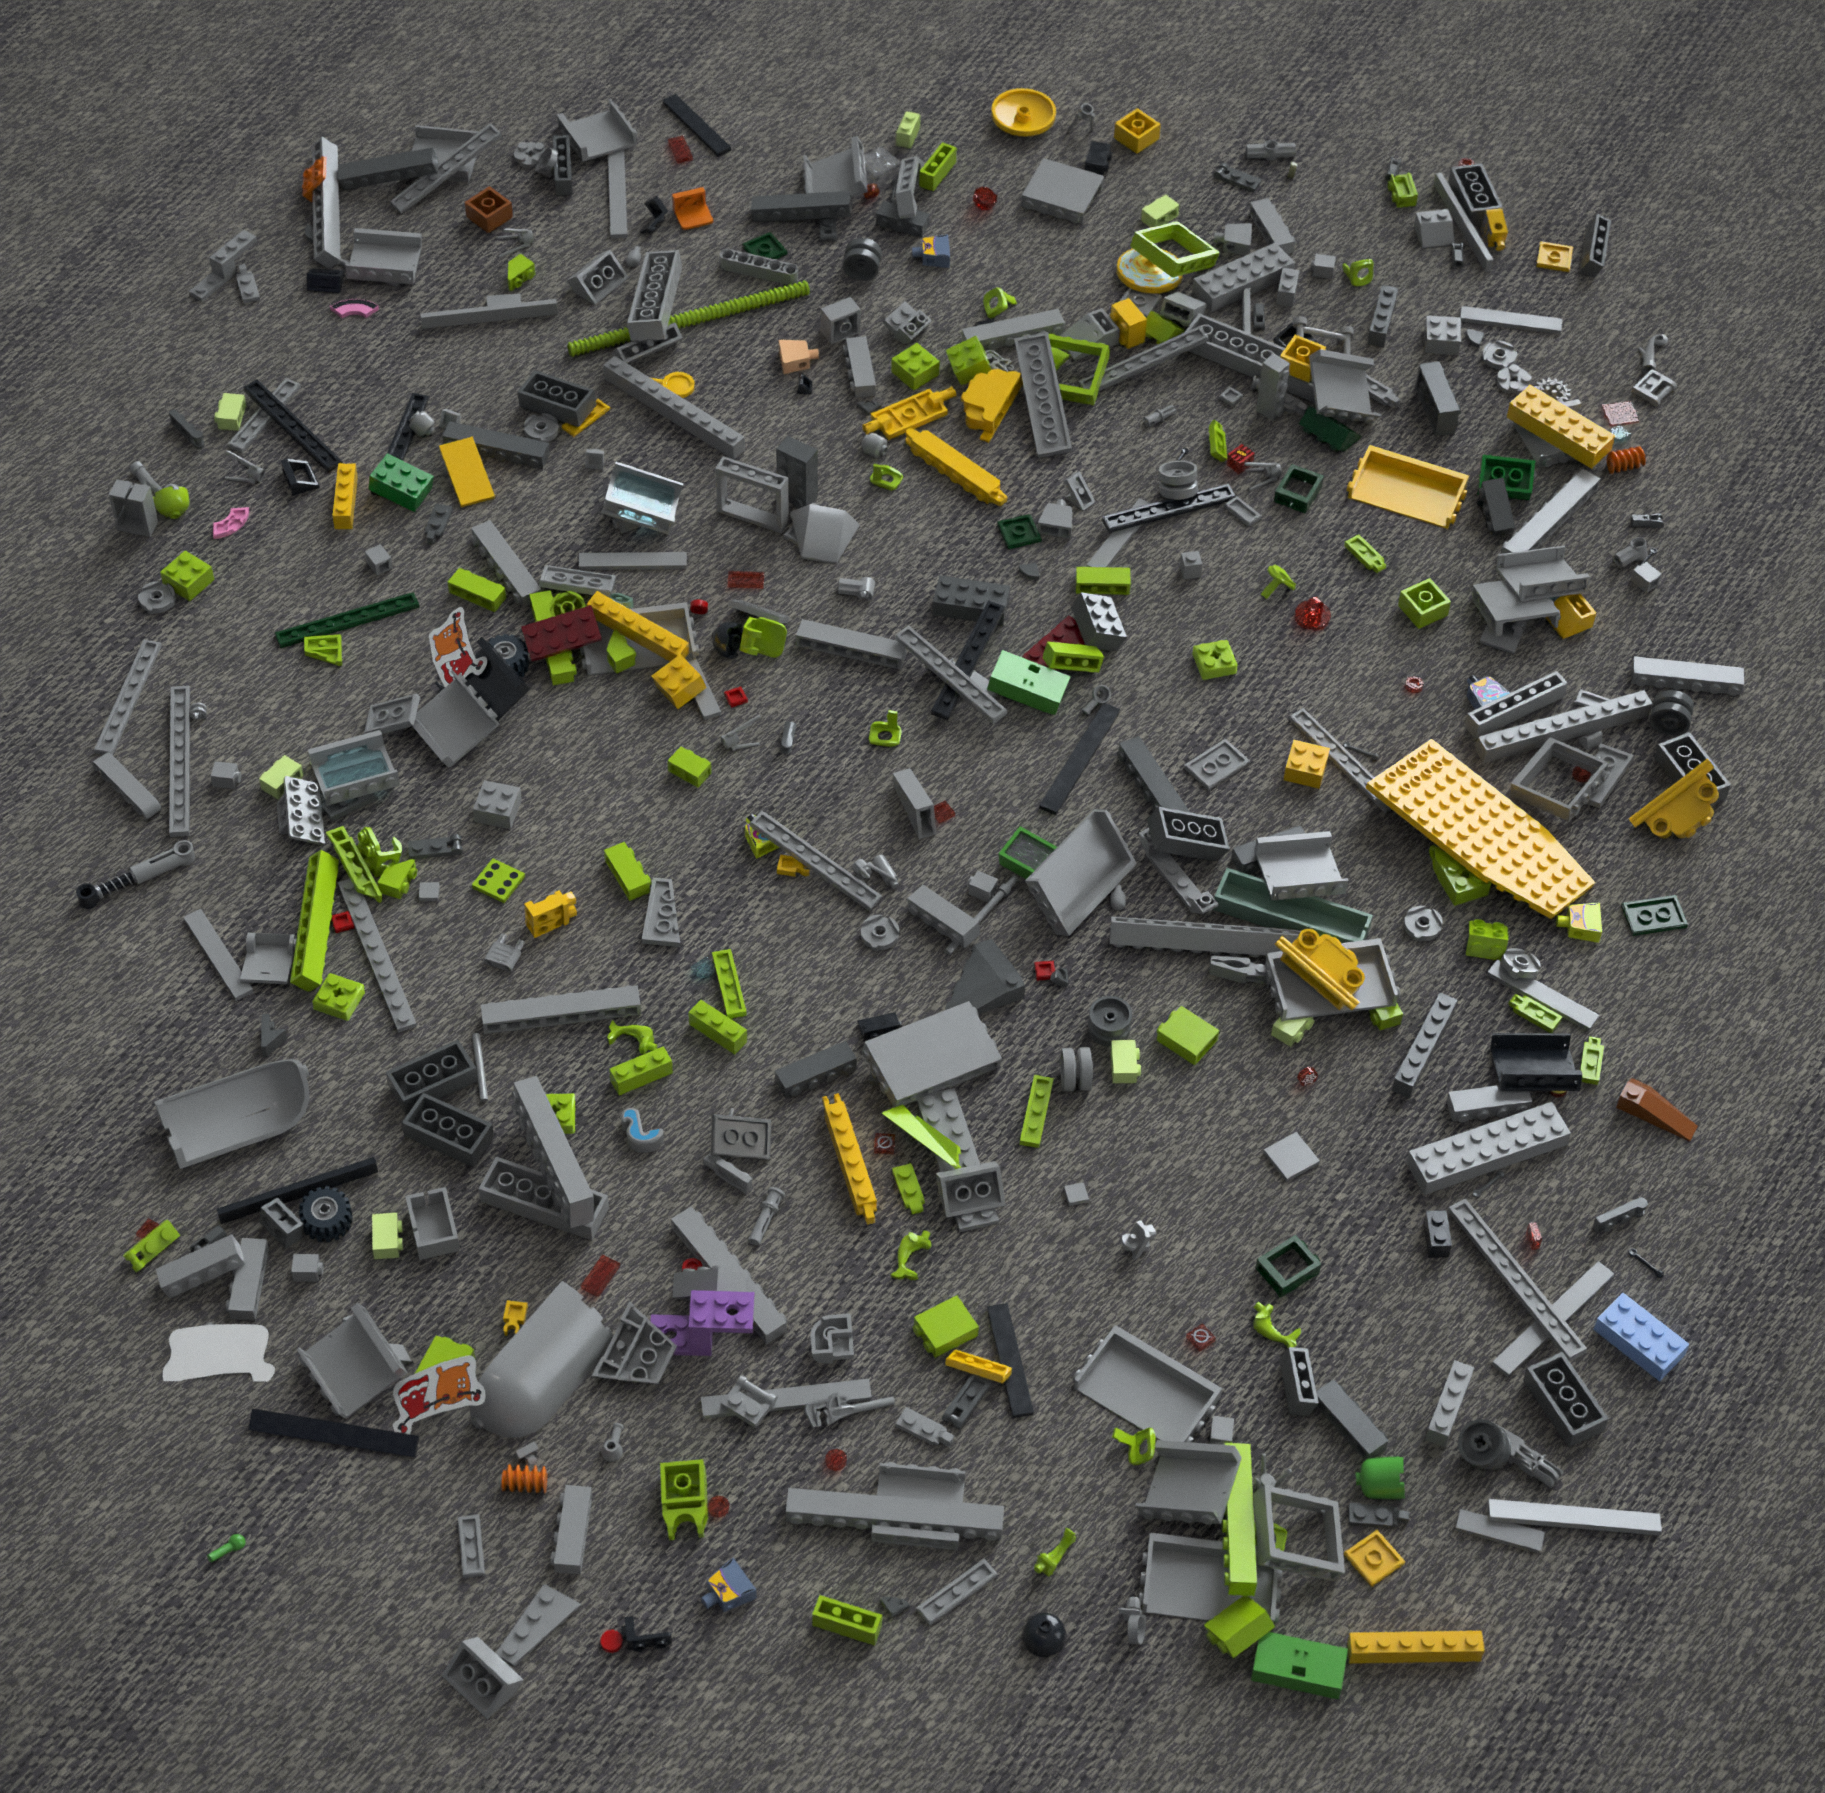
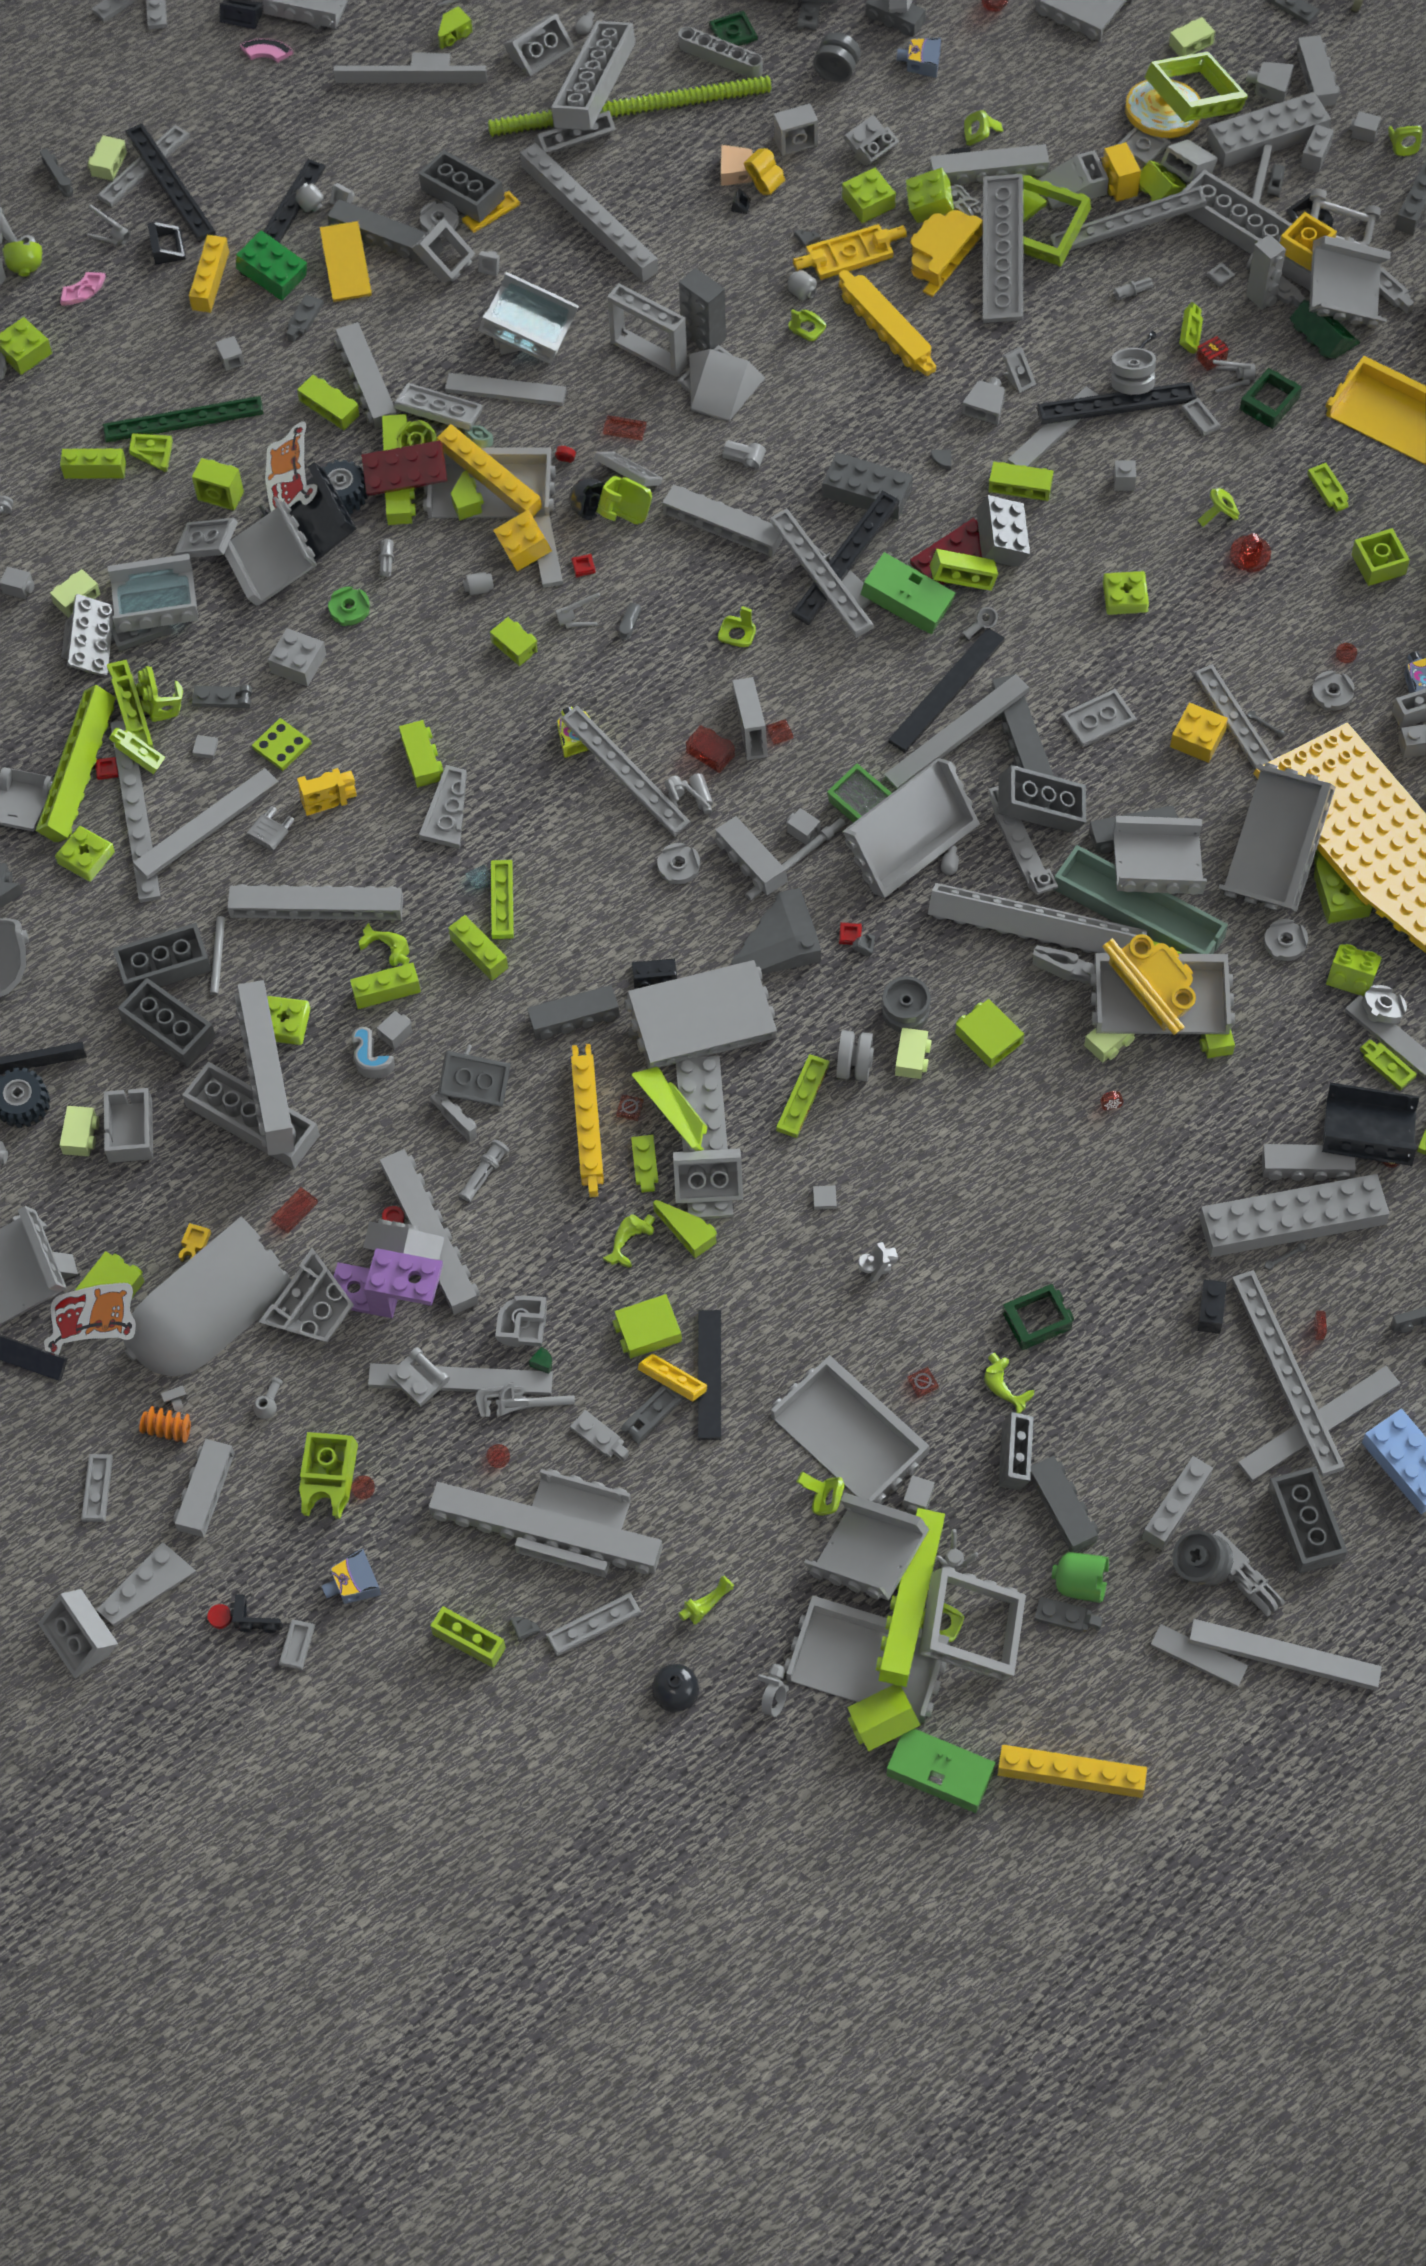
camera: 15 degrees right, 10 degrees up
(274, 666) = (93, 463): none -> lime brick
(369, 901) = (137, 749): none -> lime hinge
(393, 668) = (217, 484): none -> lime brick
(396, 879) = (173, 727): lime slope -> none
(444, 956) = (205, 823): none -> light grey tile
(535, 765) = (351, 616): none -> bright green plate
(545, 461) = (433, 262): none -> light grey window
(558, 712) = (386, 557): none -> light grey axle
(646, 723) = (478, 583): none -> light grey brick
(658, 1107) = (395, 1029): none -> light grey brick
(678, 382) = (599, 183): yellow piece -> none
(688, 1654) = (296, 1644): none -> light grey tile
(790, 866) = (597, 773): yellow plate -> none
(821, 357) = (764, 171): none -> yellow brick
(857, 1370) = (541, 1361): none -> dark green tile
(860, 367) = (807, 188): light grey brick -> none
(885, 833) = (710, 748): none -> clear red brick
(961, 1237) = (689, 1229): none -> lime slope
(1019, 531) = (941, 409): dark green tile -> none
(1099, 790) = (958, 731): none -> light grey tile
(1291, 1156) = (1072, 1190): light grey tile -> none
(1374, 1558) = (1053, 1663): yellow tile -> none
(1399, 837) = (1279, 838): none -> light grey panel
(1407, 724) = (1328, 700): none -> light grey plate
(1424, 1045) = (1251, 1084): brick -> none

